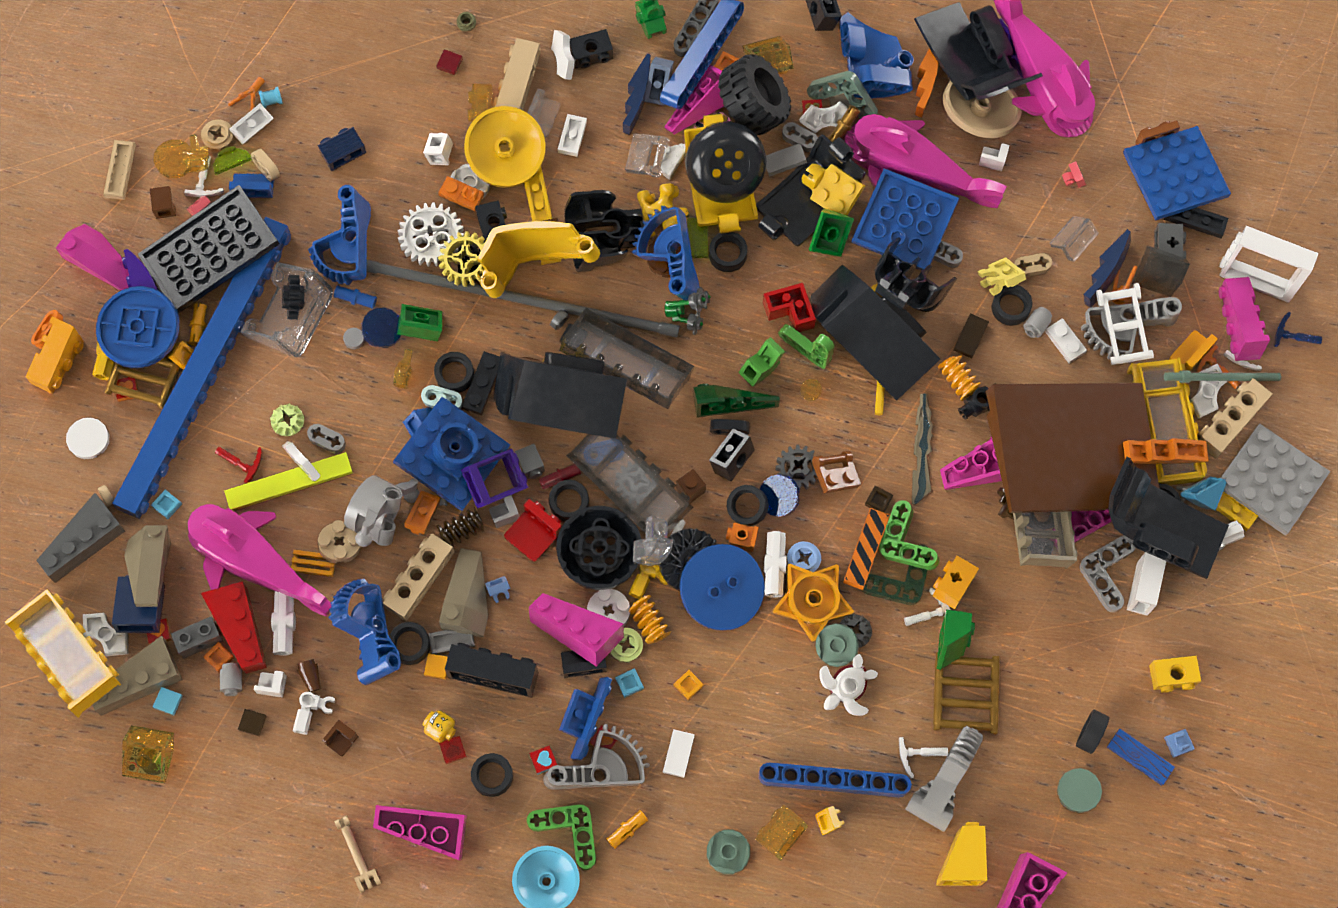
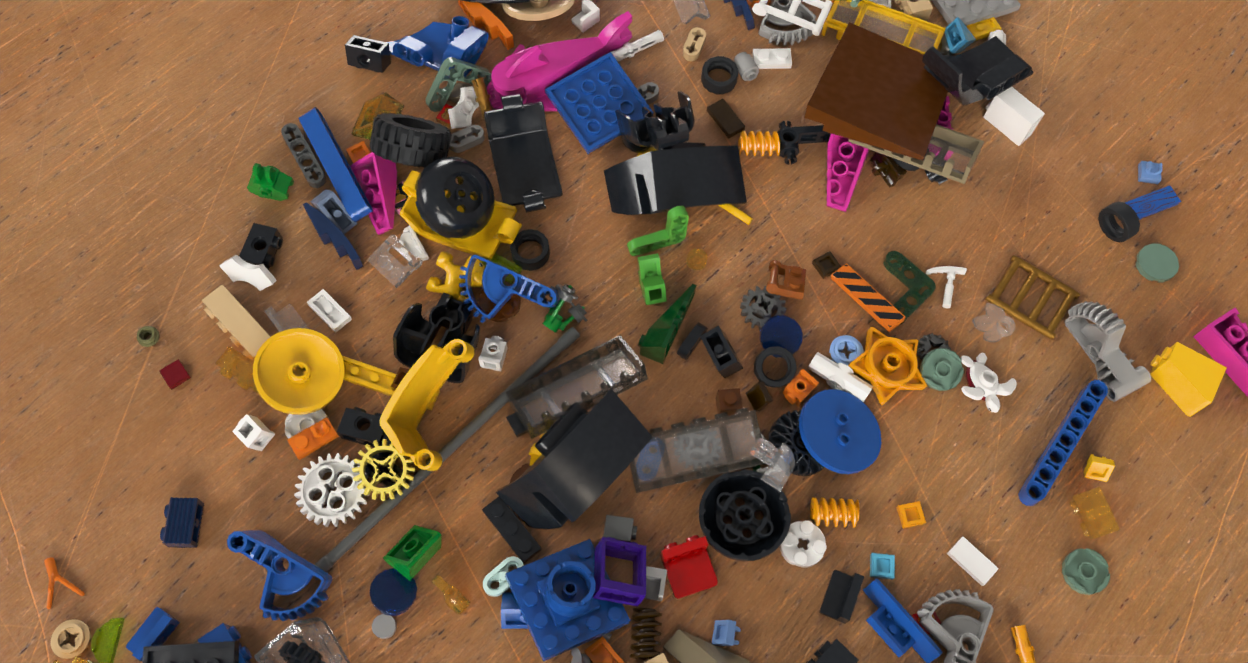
camera: 60 degrees left, 5 degrees down
(251, 123) = (87, 597): white plate -> none
(265, 165) = (141, 608): tan beam -> none
(270, 97) = (75, 561): medium azure bush -> none
(355, 297) = (343, 599): blue pin -> none
(449, 358) = (475, 534): black tyre -> none
(559, 319) = (497, 423): dark grey tile -> none
(560, 475) = (648, 512): dark red axle -> none
(565, 485) = (677, 500): black tyre -> none
(577, 628) = (812, 581): dark pink wedge -> none
(615, 286) = (495, 359): none -> white brick
(631, 653) = (845, 537): yellowish green gear -> none
(641, 580) = (794, 500): yellow bar -> none
(713, 507) = (759, 396): none -> dark brown tile
(785, 159) = (481, 153): light grey tile -> none
(790, 302) = (615, 225): red brick -> none
(831, 233) = (570, 162): green slope -> none
(832, 188) = (534, 136): yellow plate -> none
(898, 540) = (873, 270): bright green beam -> none
(914, 668) = (992, 322): none -> clear plate
(922, 447) = (801, 208): dark tan sword -> none
(923, 752) = (1062, 372): white piece -> none
(954, 637) = (988, 275): green slope -> none
(962, 573) = (935, 247): light orange brick -> none
(993, 218) = (631, 49): none -> white pin
(1001, 273) = (692, 61): light yellow plate -> none
(1100, 573) = (997, 144): light grey beam -> none
(1166, 451) = (915, 39): orange slope -> none
(1185, 666) = (1093, 141): yellow brick -> none

